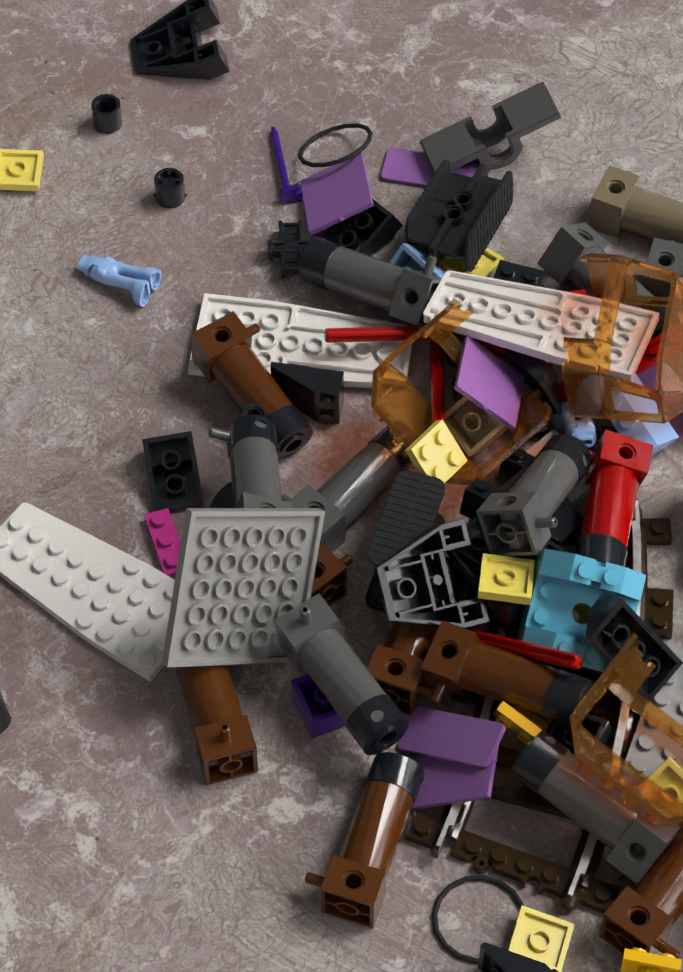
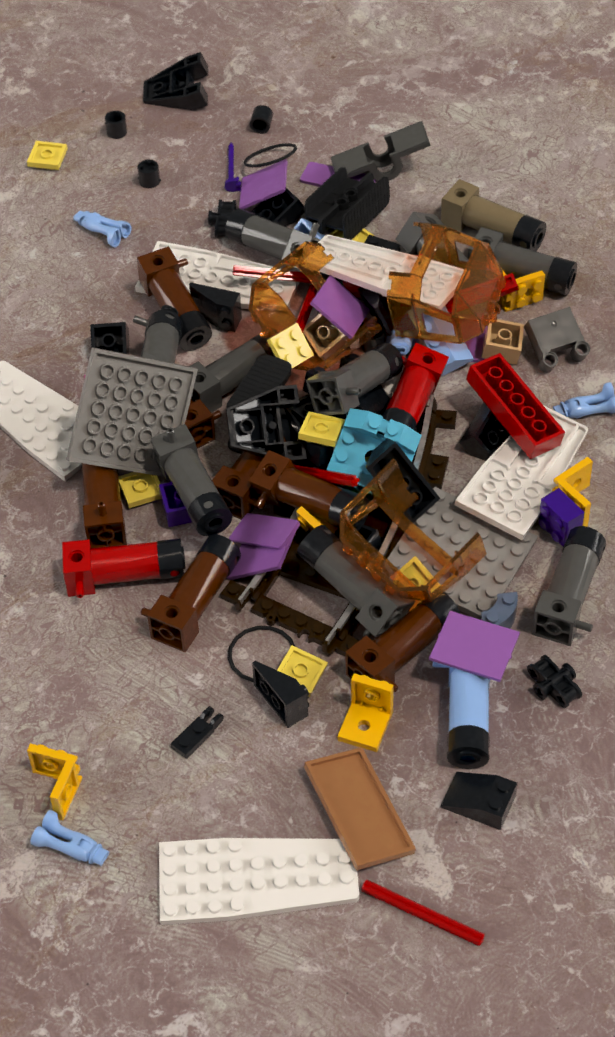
camera: 10 degrees right, 5 degrees down
(260, 684) = (139, 488): none -> light yellow plate
(261, 807) = (116, 564): none -> red piece
(310, 88) = (261, 119): none -> black piece

